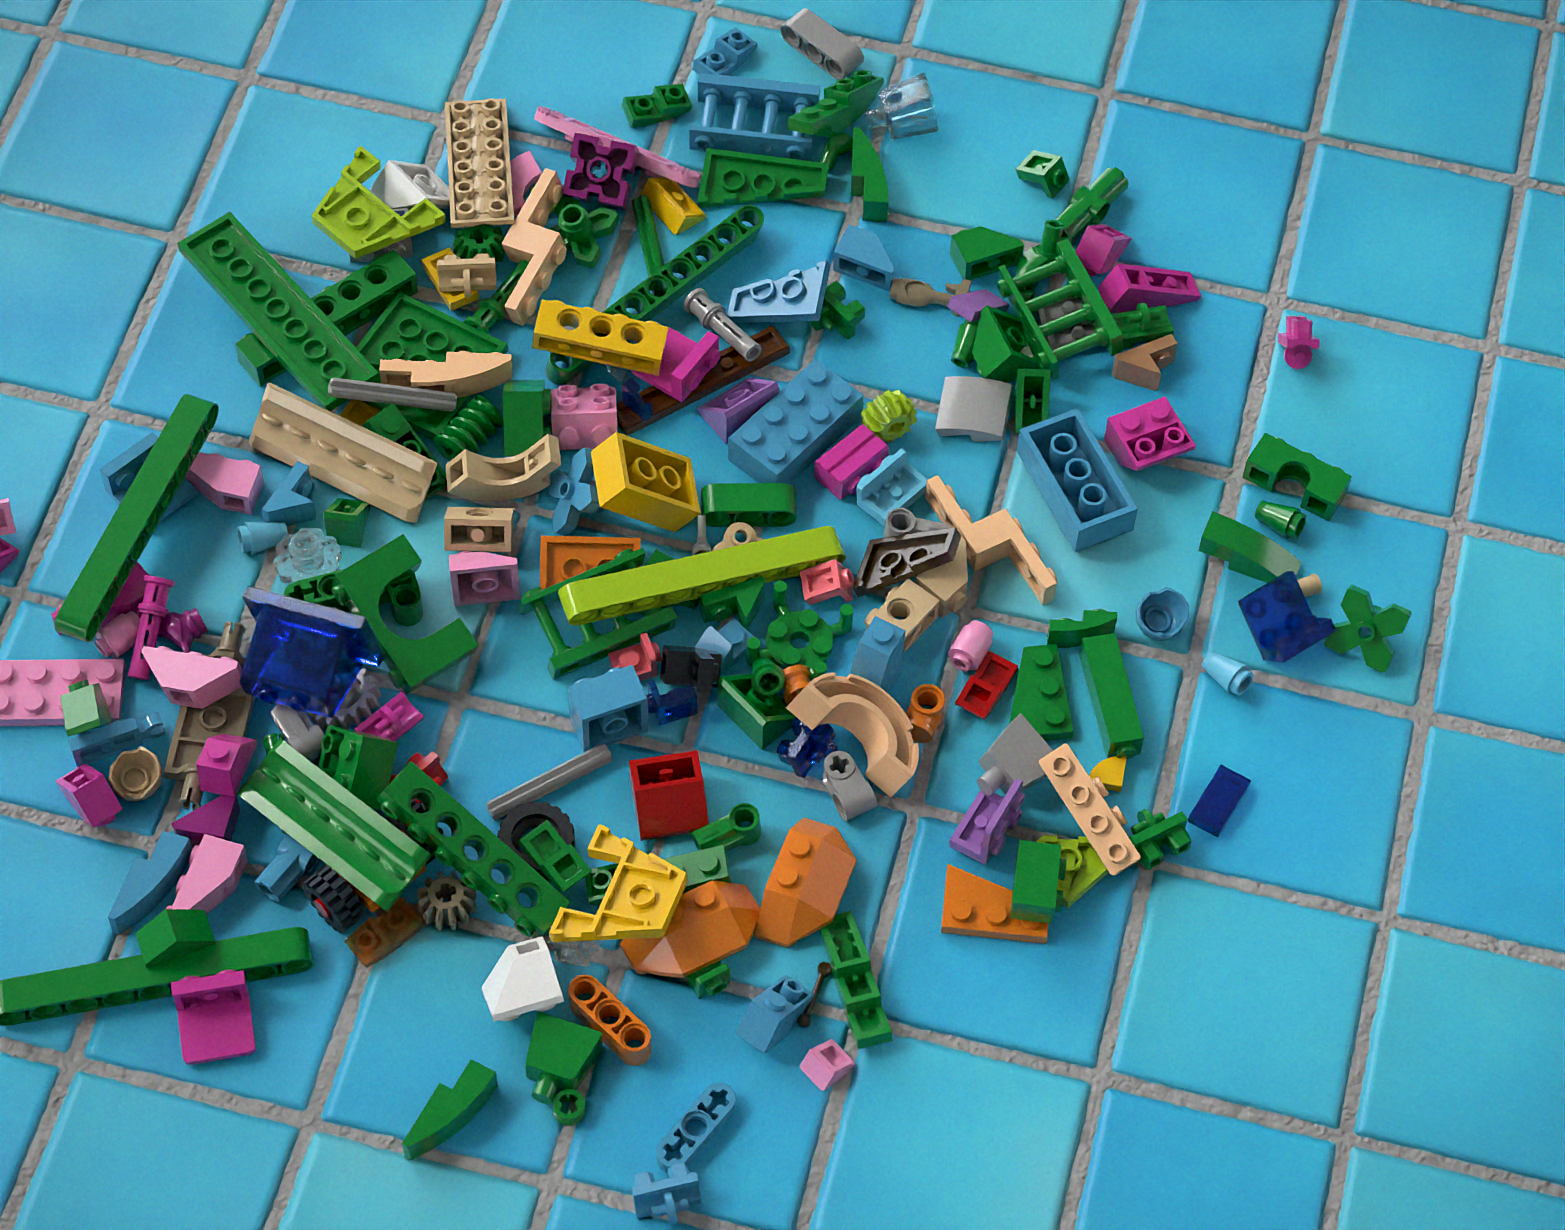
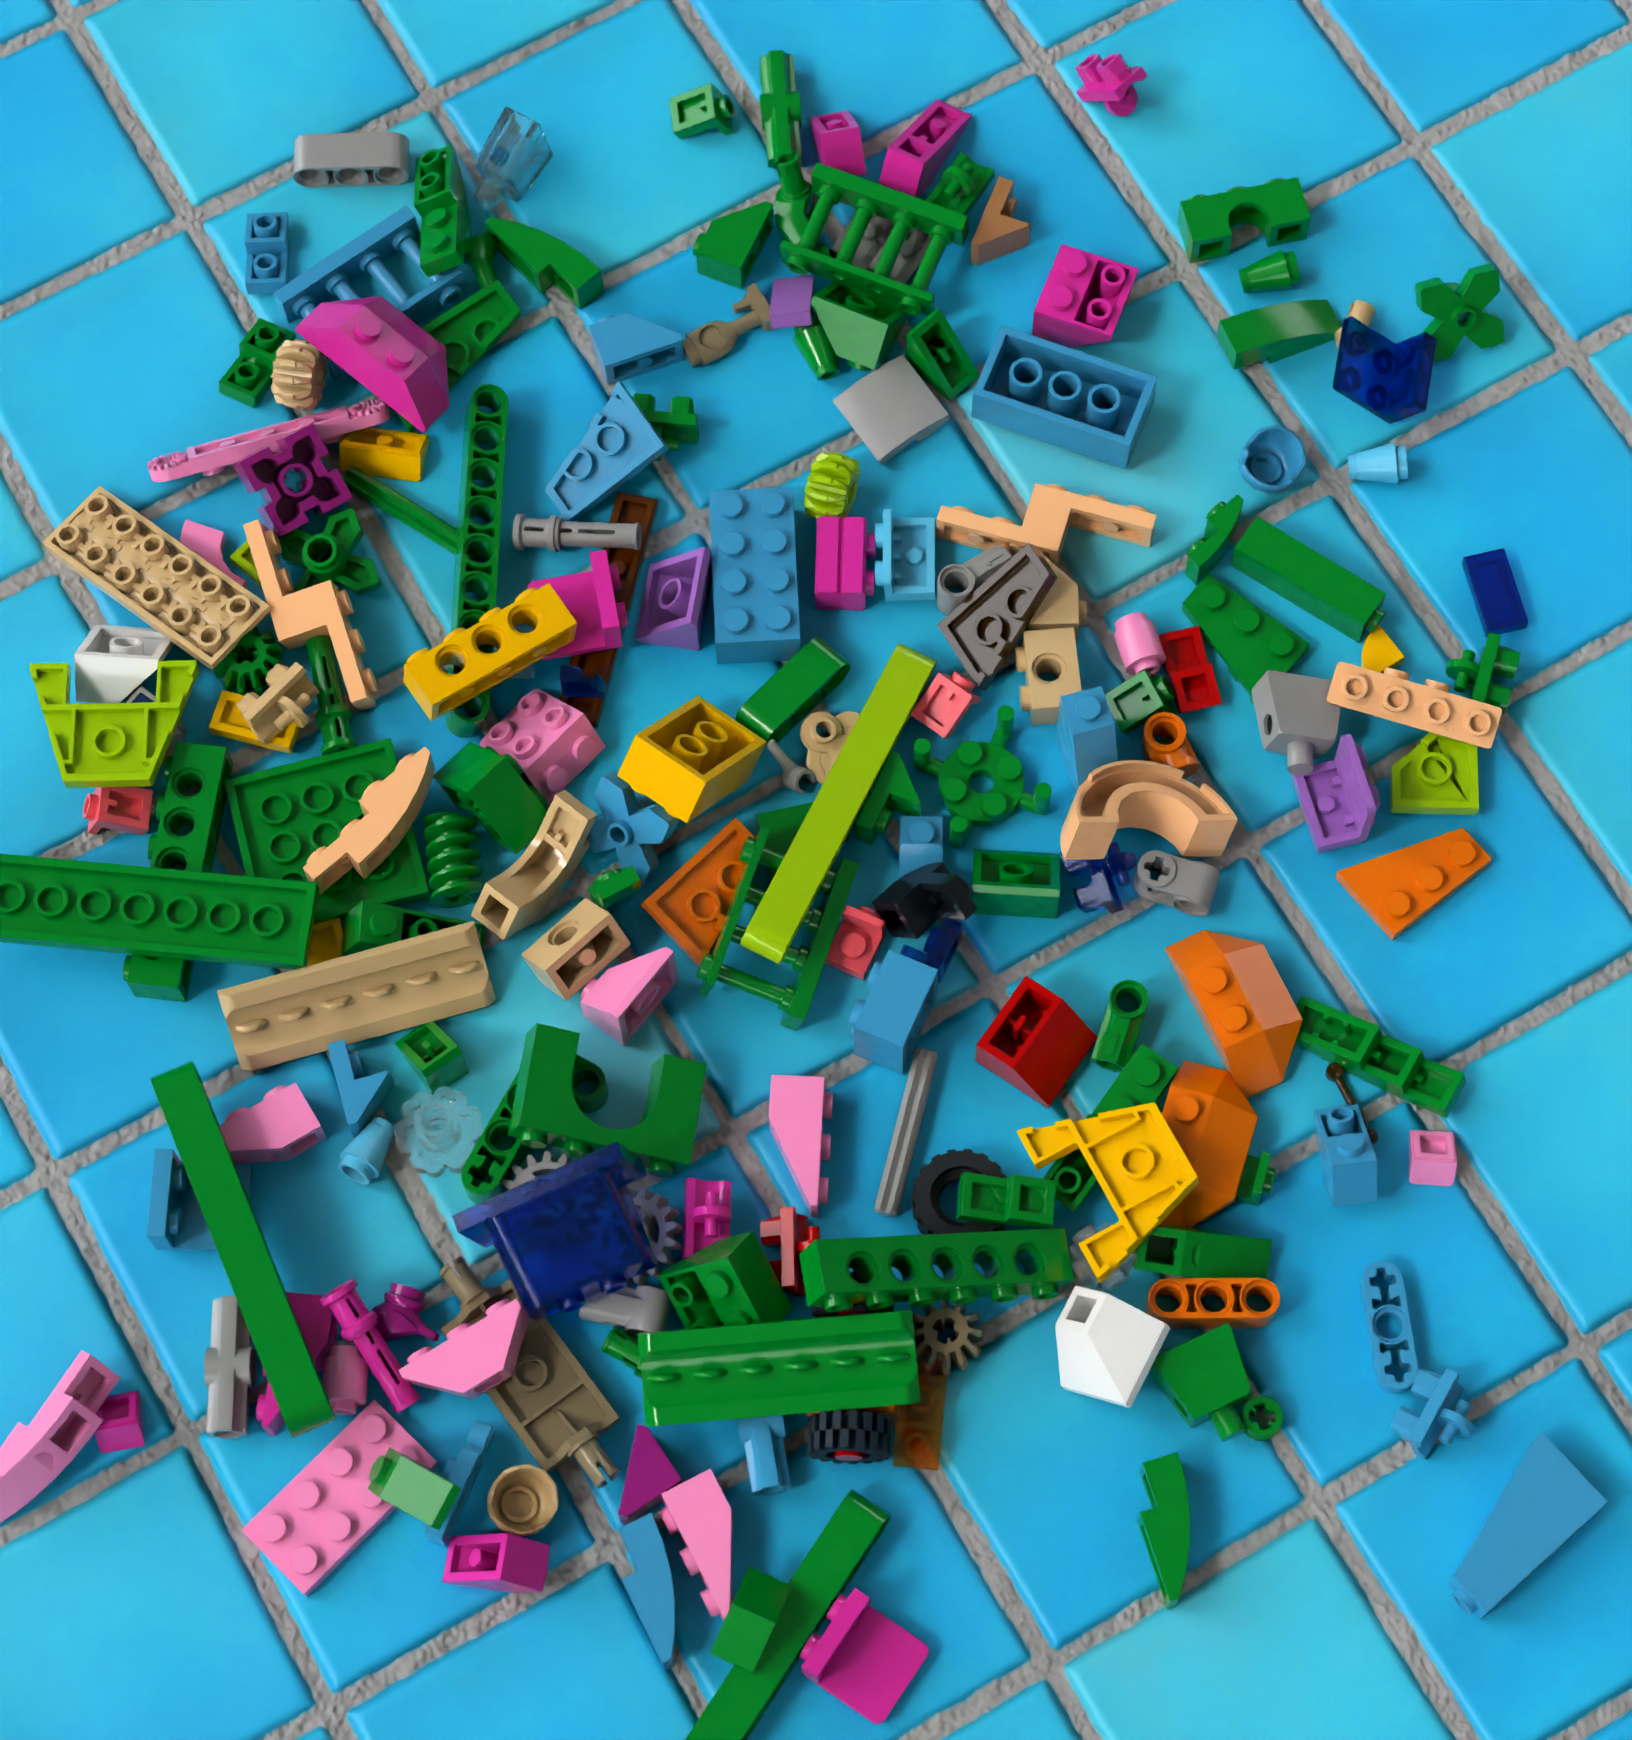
camera: 40 degrees left, 10 degrees up
(53, 591) = (229, 1371): none -> light grey piece
(224, 763) = (606, 1405): dark pink slope -> none
(332, 261) = (118, 809): none -> coral bracket
(392, 394) = (351, 892): light grey axle -> none
(494, 723) = (796, 1124): none -> bright pink slope
(531, 513) = (614, 886): none -> green slope
(632, 986) = (1202, 1253): none -> green slope
(667, 124) = (298, 375): none -> tan gear
(721, 150) = (384, 355): none -> dark pink wedge
(766, 677) = (999, 844): green cone -> none
(796, 679) = (1028, 827): orange wheel -> none
(941, 672) = (1139, 699): none -> green bracket
(1036, 882) = (1442, 816): green brick -> none

